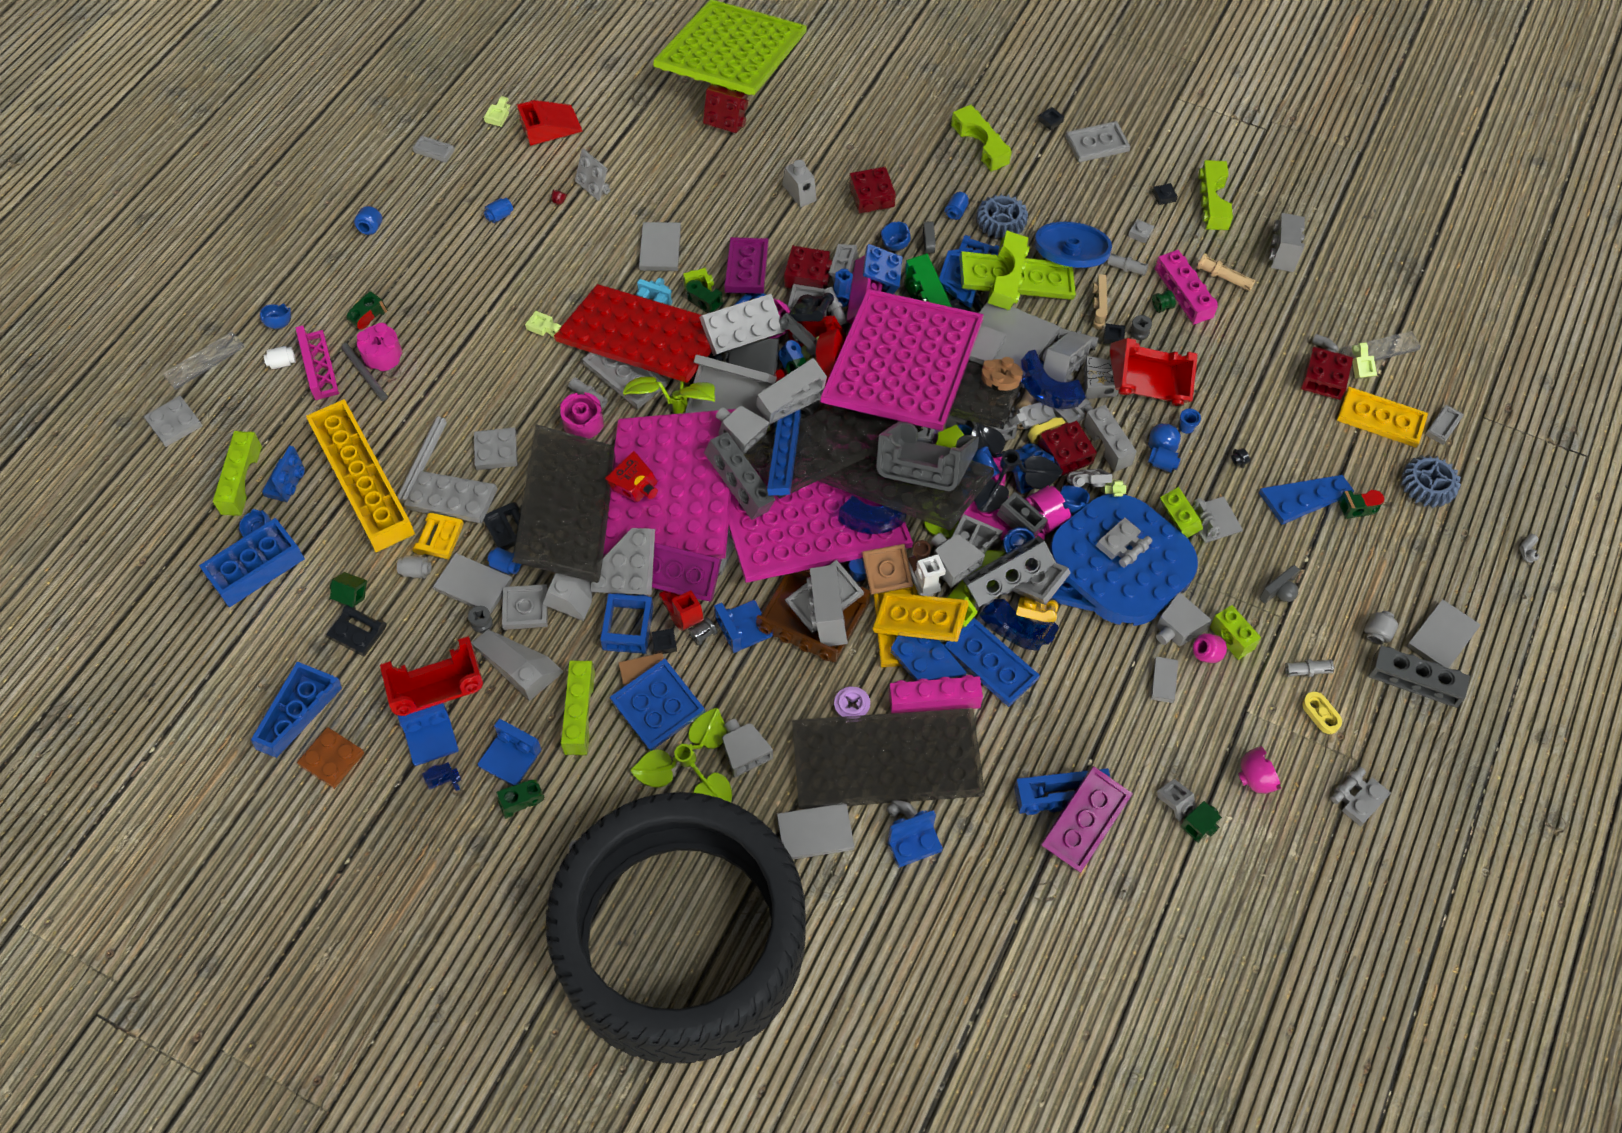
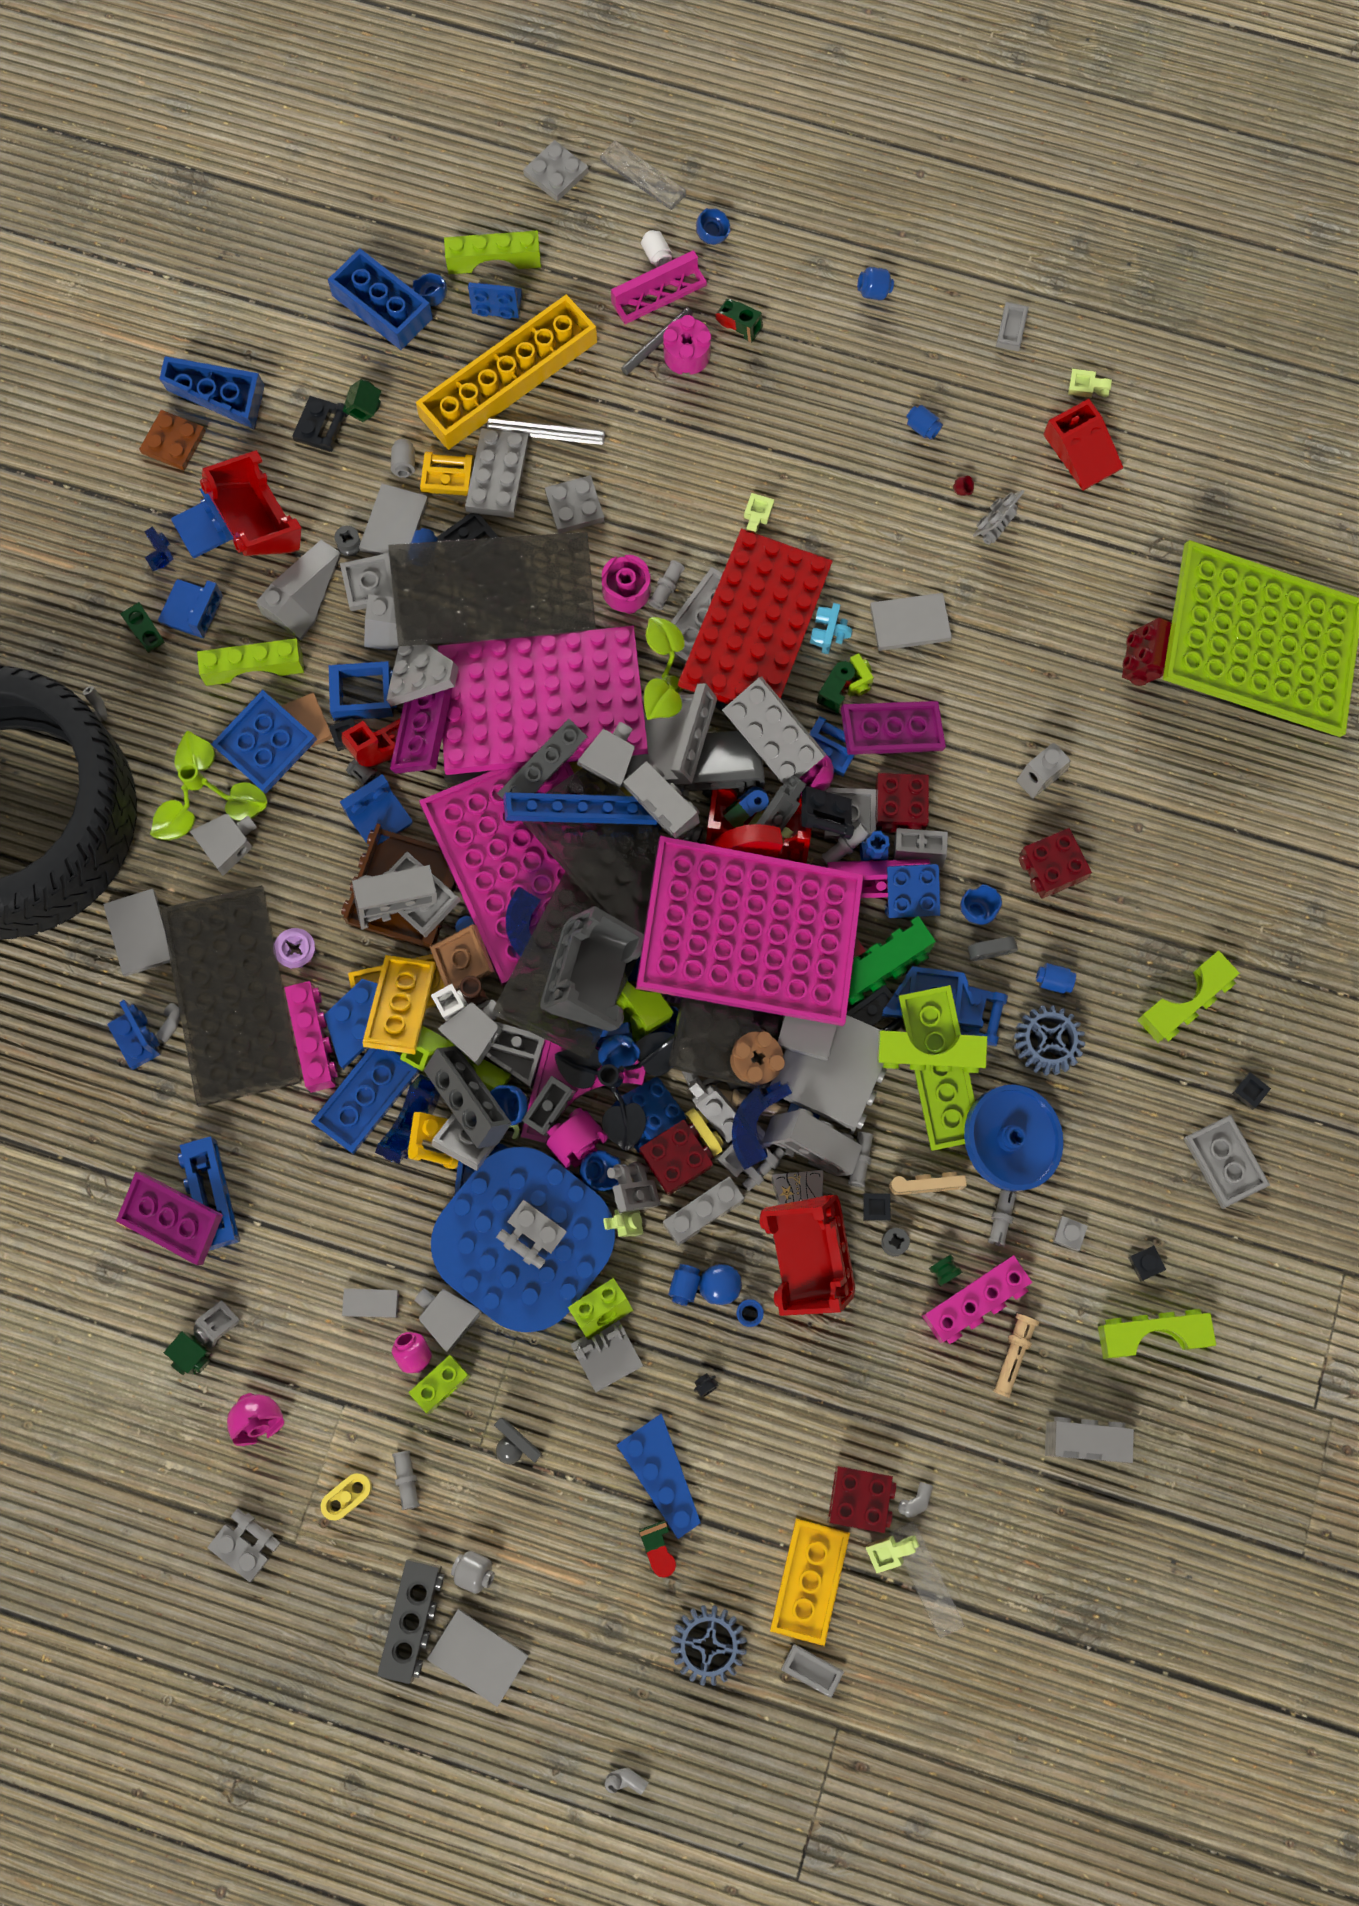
camera: 80 degrees right, 15 degrees up
(633, 479) = (536, 655): red torso -> none

